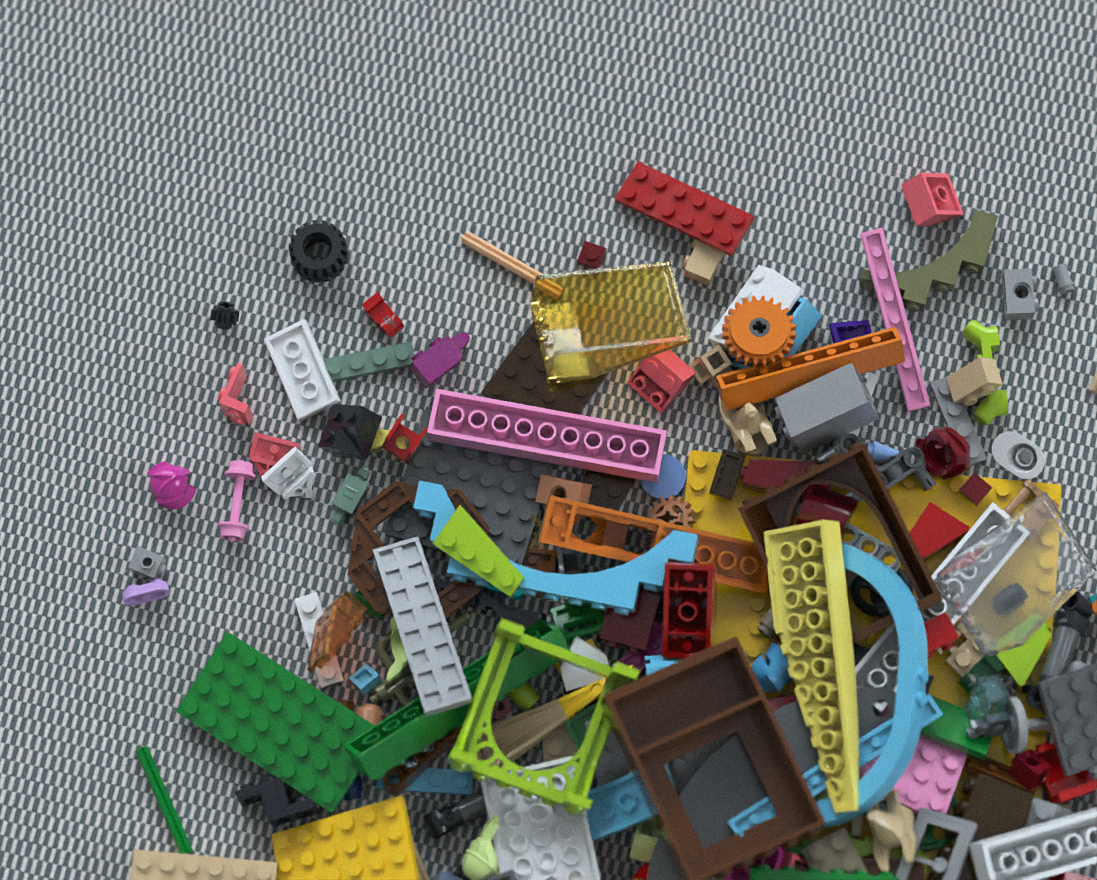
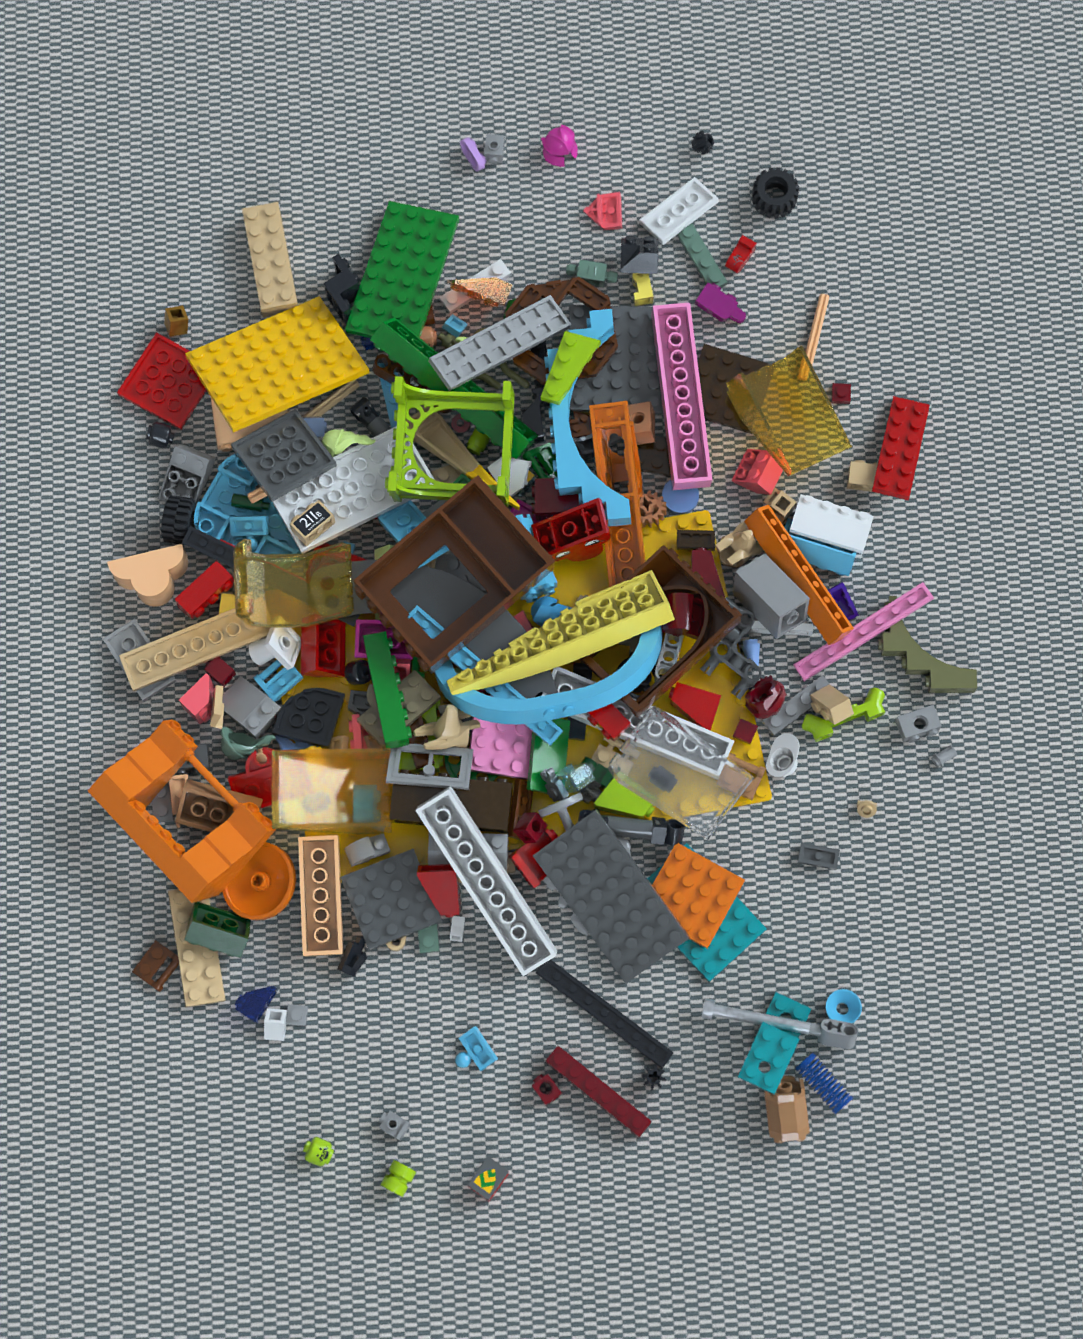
camera: 70 degrees right, 0 degrees up
(164, 800) = (322, 216): green axle -> none
(231, 407) = (642, 164): coral bracket -> none
(232, 529) = (538, 198): bright pink piece -> none
(291, 475) = (593, 227): white slope -> none
(400, 430) = (646, 284): red piece -> none
(748, 344) = (819, 513): orange gear -> none
(931, 199) = (975, 635): coral slope -> none

